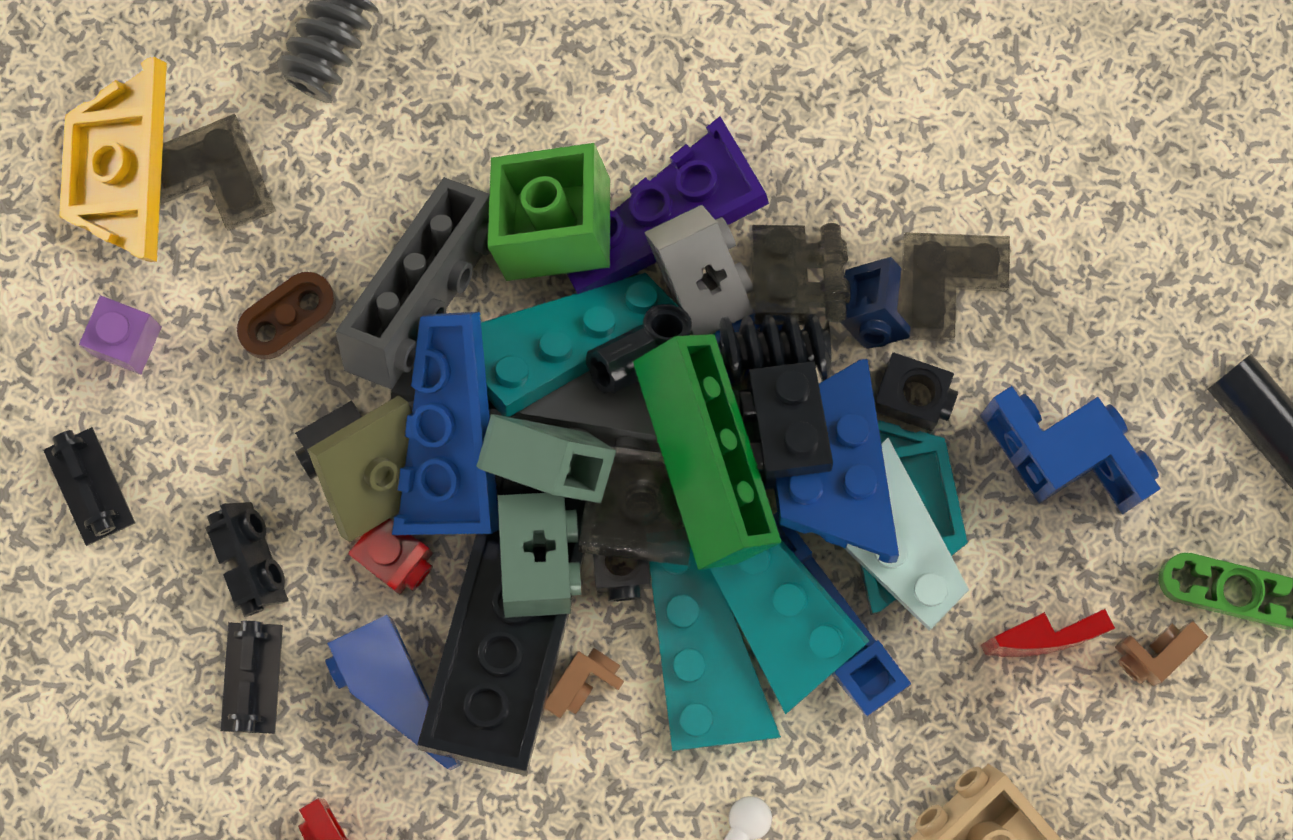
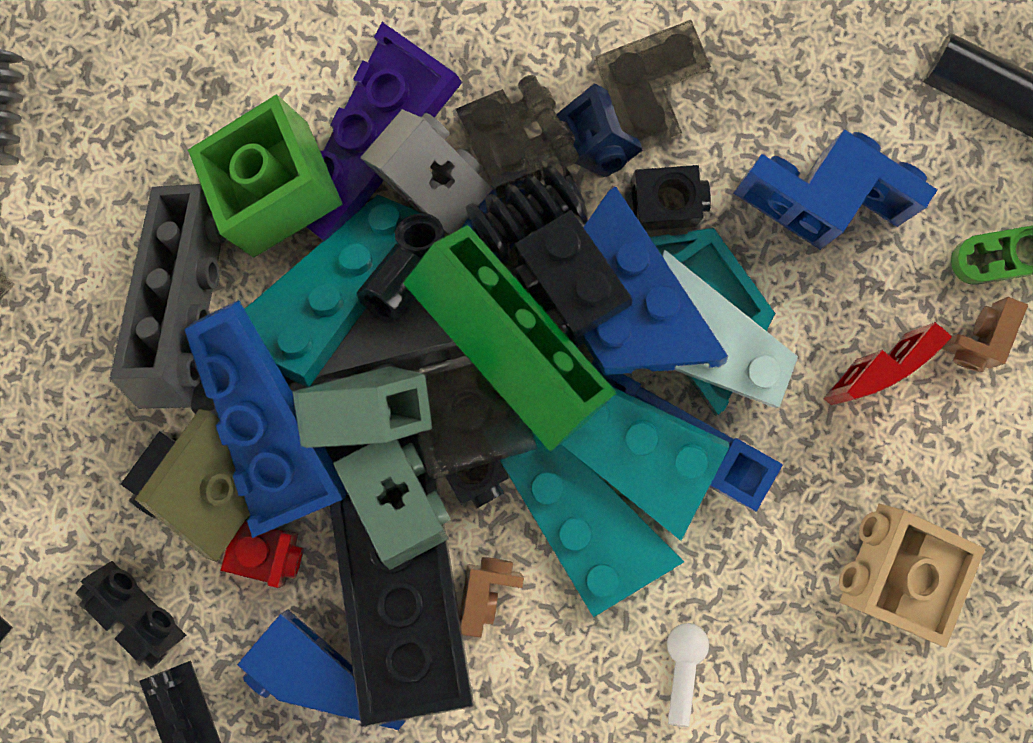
camera: 30 degrees left, 5 degrees up
(283, 311) = (62, 373): reddish brown plate -> none

